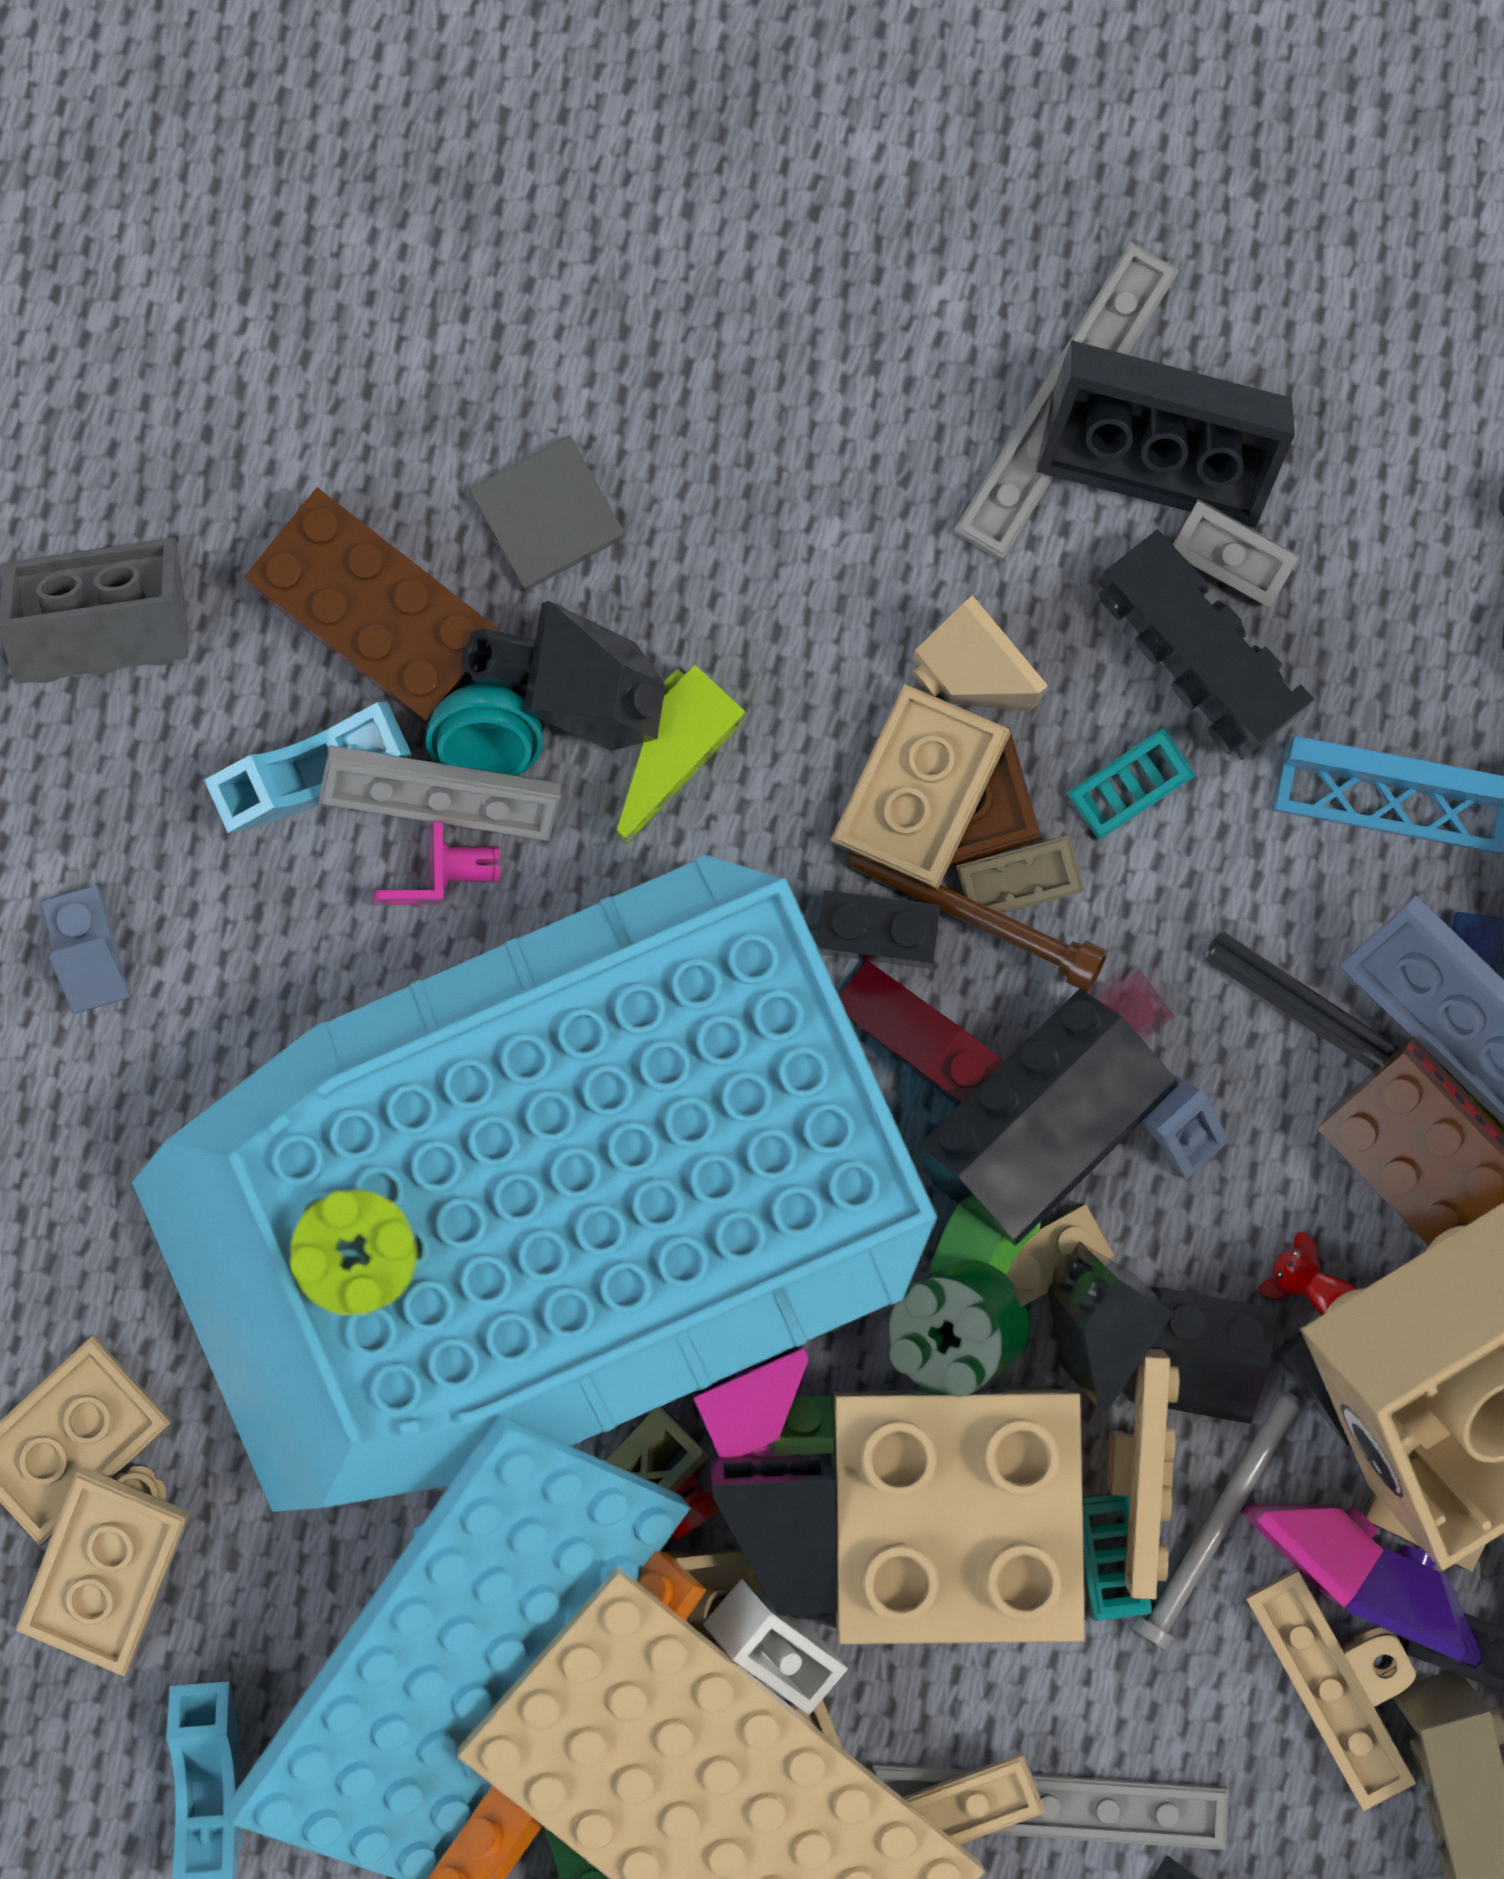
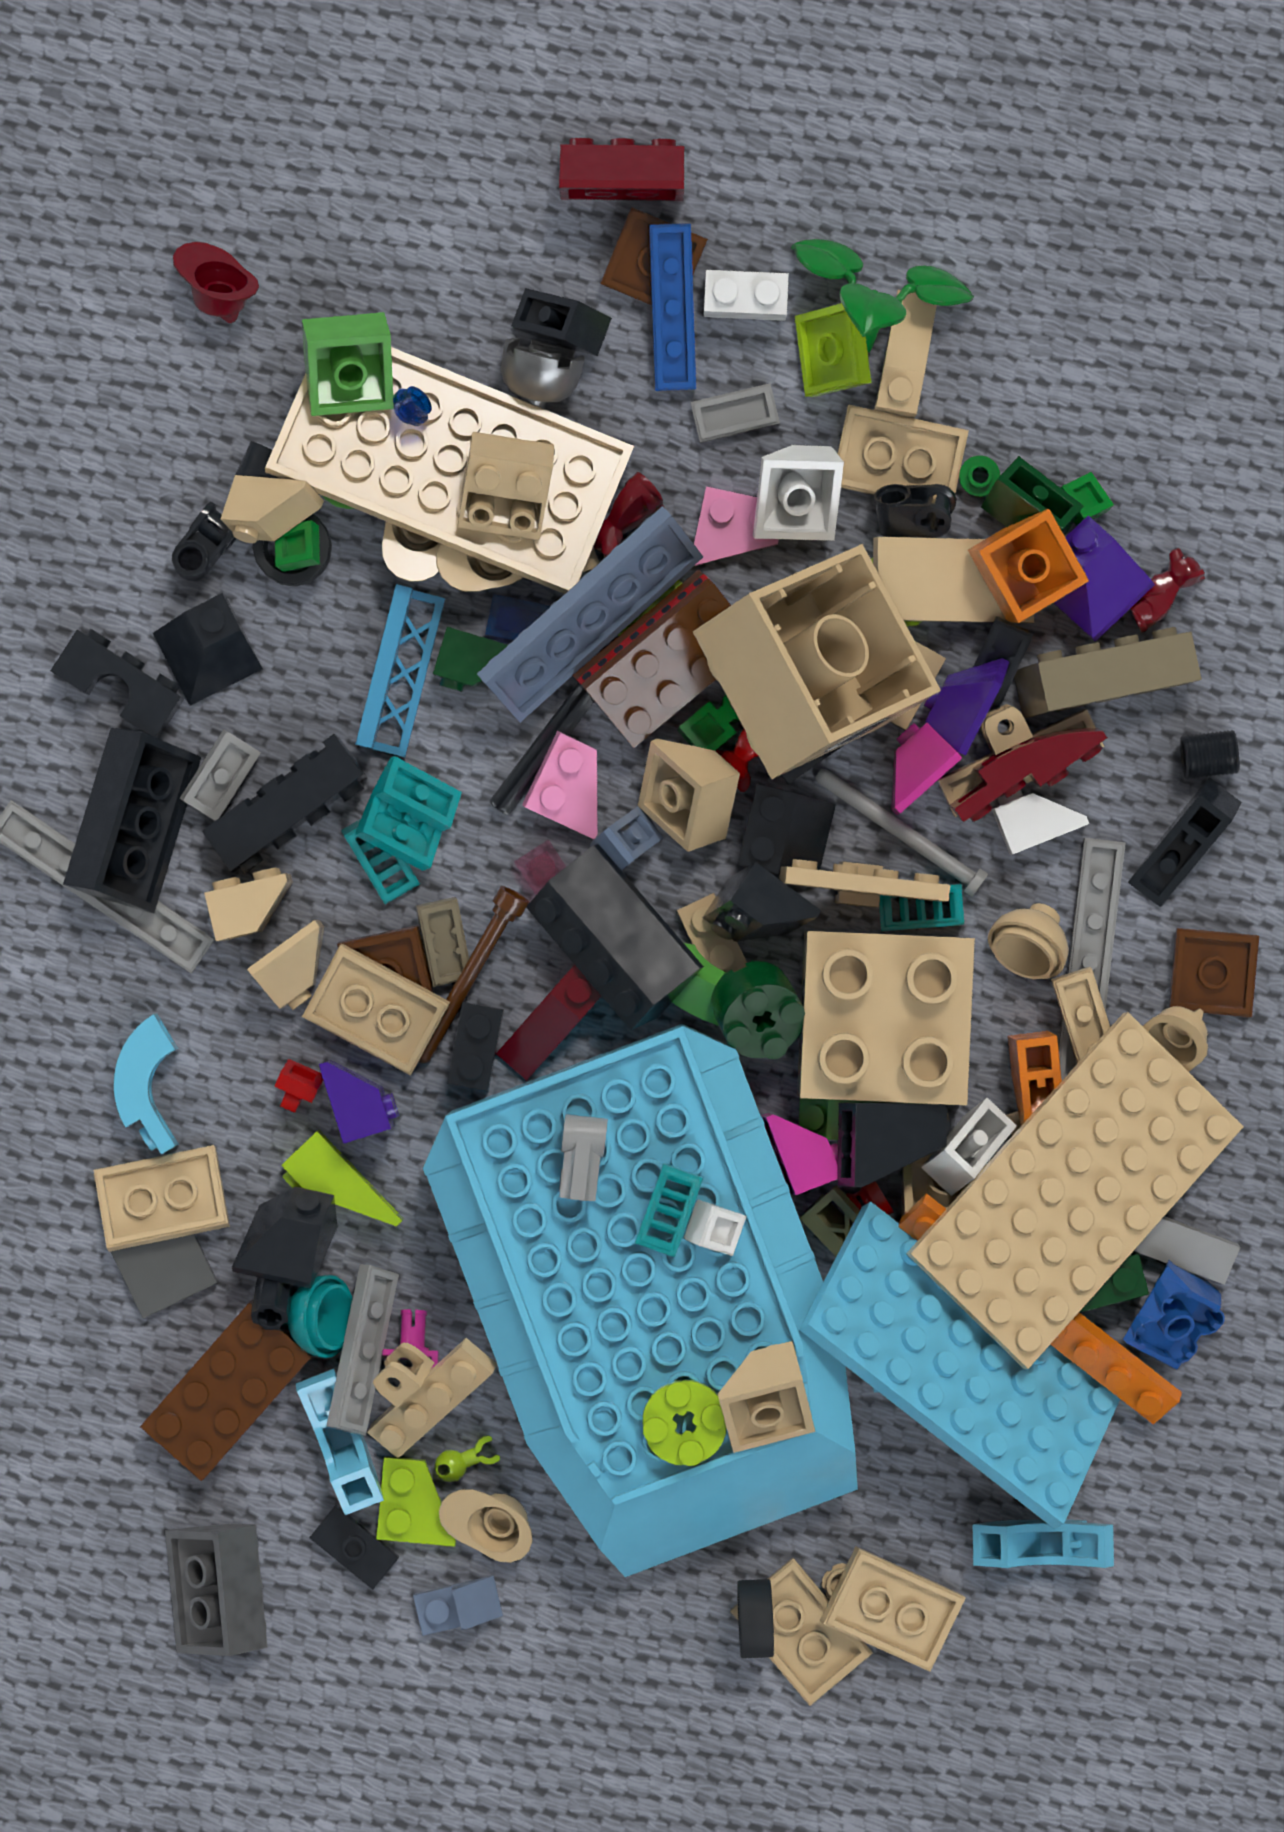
camera: 80 degrees left, 5 degrees up
(78, 1373) = (755, 1618): none -> black tyre
(161, 800) = (354, 1547): none -> black plate
(202, 983) = (487, 1523): none -> tan piece
(224, 876) = (410, 1504): none -> lime wing
(287, 940) = (459, 1462): none -> lime arm
(382, 882) = (424, 1392): none -> tan plate
(394, 1372) = (766, 1399): none -> tan slope
(638, 505) = (161, 1198): none -> tan tile
(643, 1281) = (714, 1227): none -> white slope
(715, 1229) = (682, 1177): none -> teal slope
(752, 1079) = (582, 1148): none -> light grey piece
(787, 764) = (357, 1102): none -> dark purple slope
(802, 458) = (134, 1079): none -> medium azure arch
(808, 685) = (298, 1083): none -> red tile
(890, 1734) = (1033, 1069): none -> orange slope
(1056, 595) = (245, 907): none -> tan slope
(1074, 1718) = (1030, 942): none -> tan piece
(1199, 816) = (408, 813): none -> teal slope
(1249, 1713) = (1033, 820): none -> white slope
(1253, 1038) = (567, 785): none -> bright pink wing
(1259, 1211) = (688, 792): none -> tan slope
(1342, 1718) = (1040, 757): none -> dark red slope
(1349, 1239) = (709, 726): none -> green plate
(1378, 364) = (150, 700): none -> black arch
(1409, 527) = (207, 649): none -> black slope
(1421, 871) = (463, 657): none -> dark green slope

